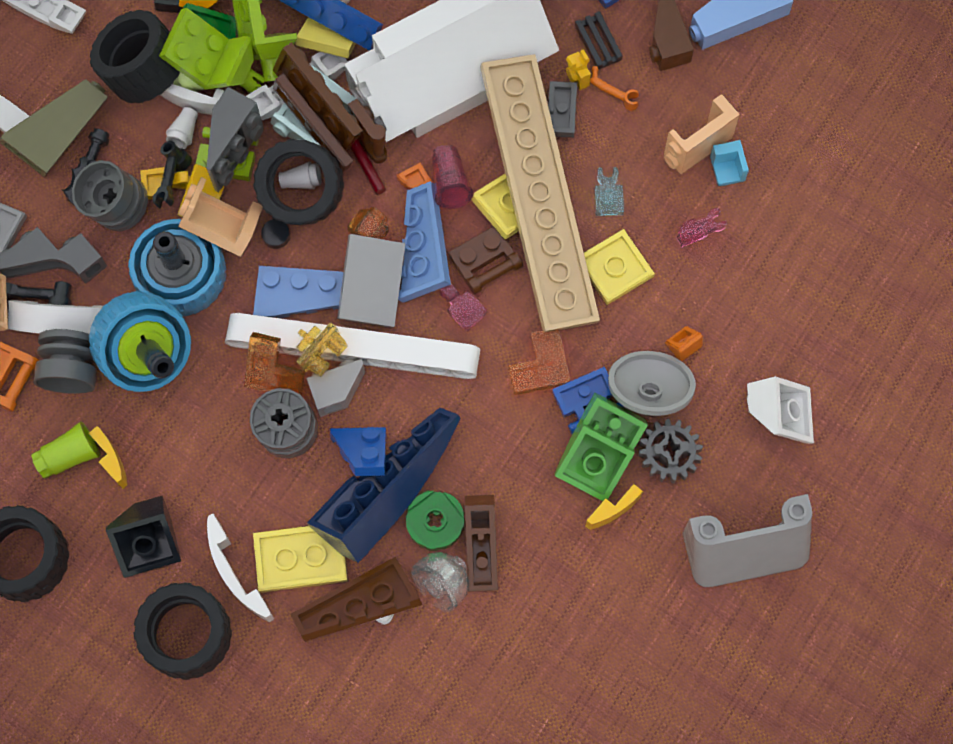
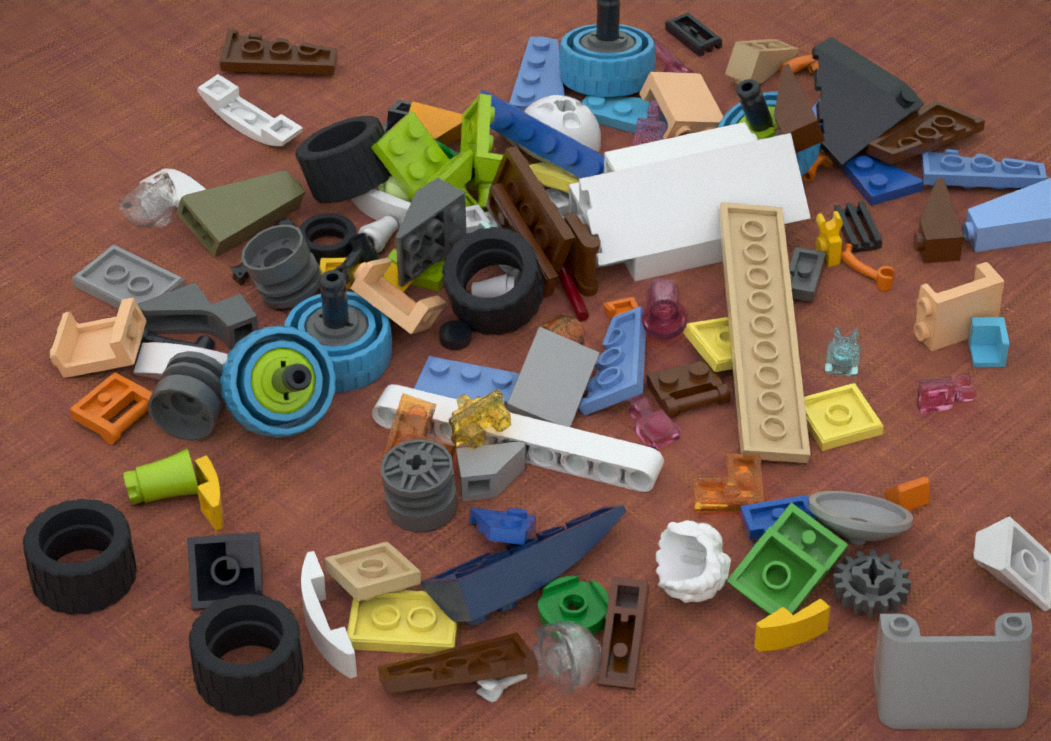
camera: 10 degrees right, 30 degrees down
(130, 128) = (328, 225): none -> black tyre
(265, 519) = (372, 571): none -> tan plate
(524, 466) = (691, 561): none -> white hair

